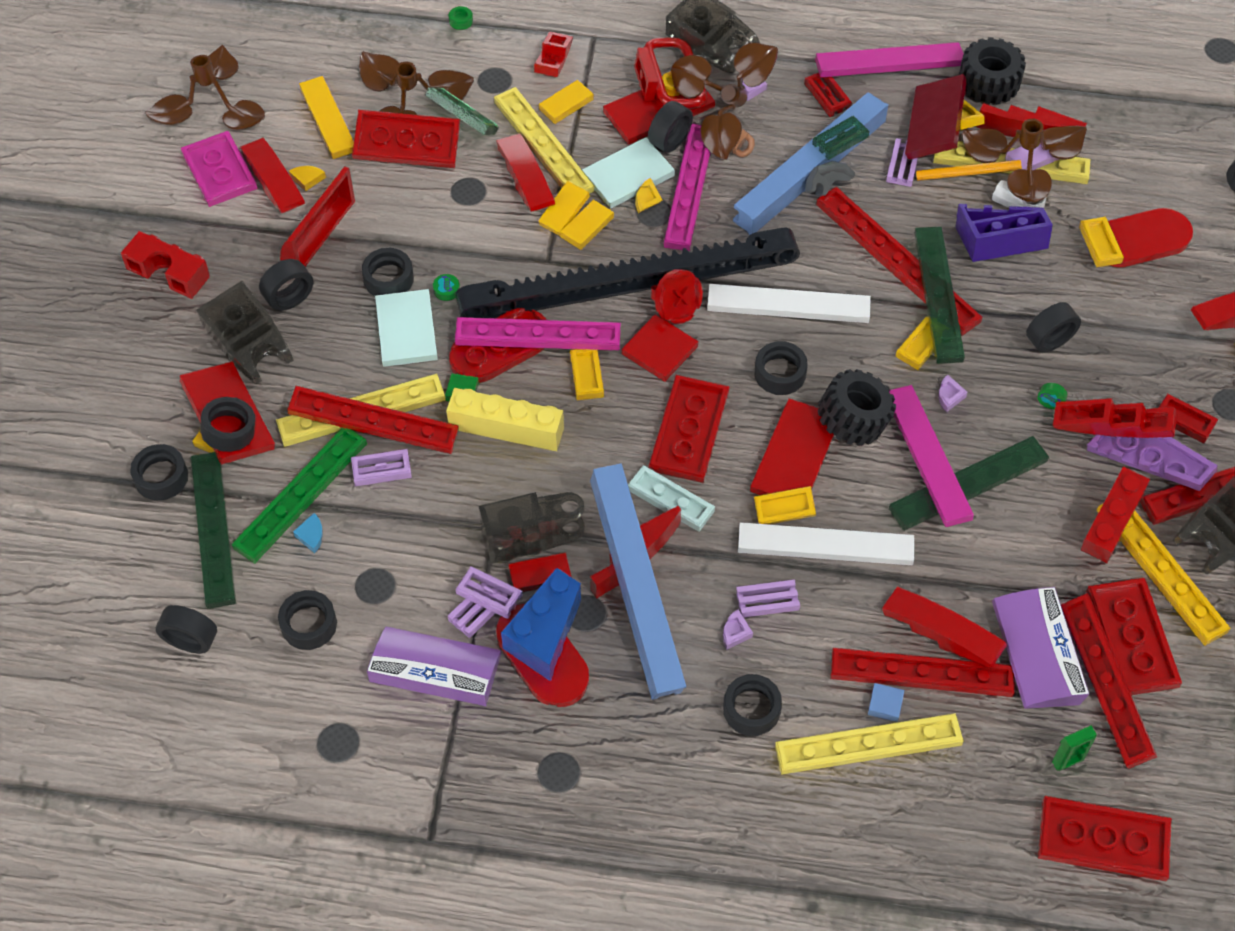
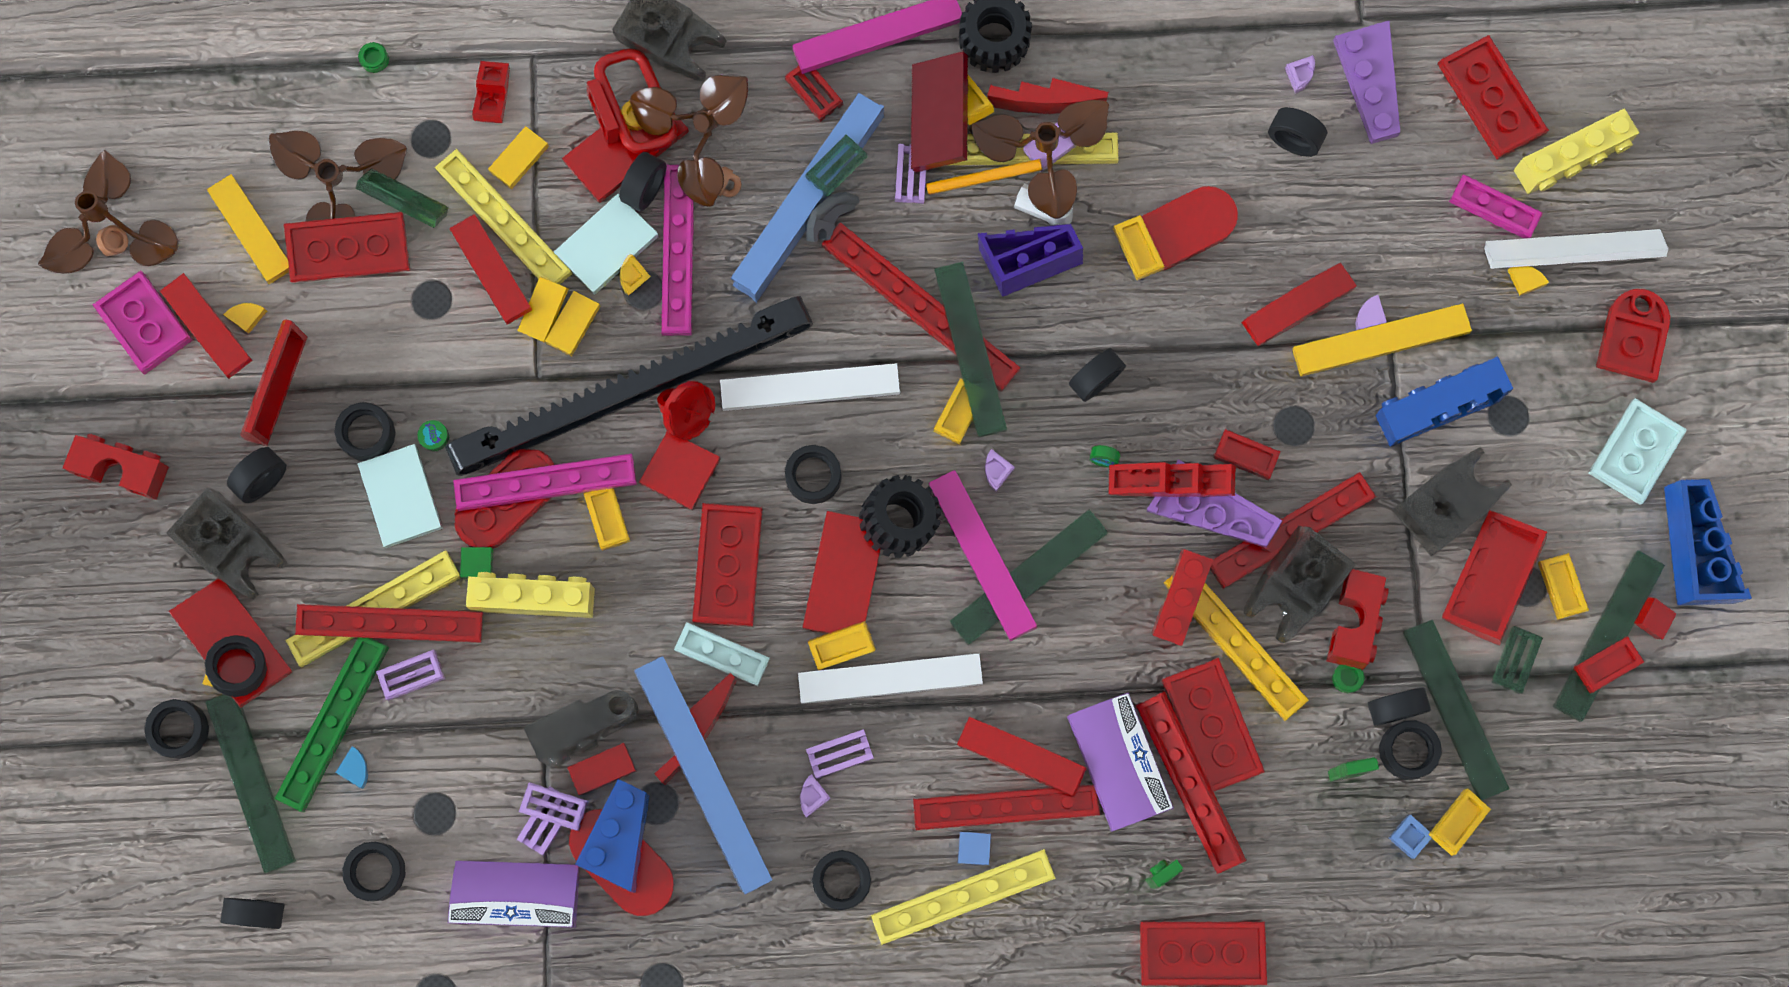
camera: 10 degrees left, 20 degrees up
(210, 105) = (112, 240): none -> nougat tile

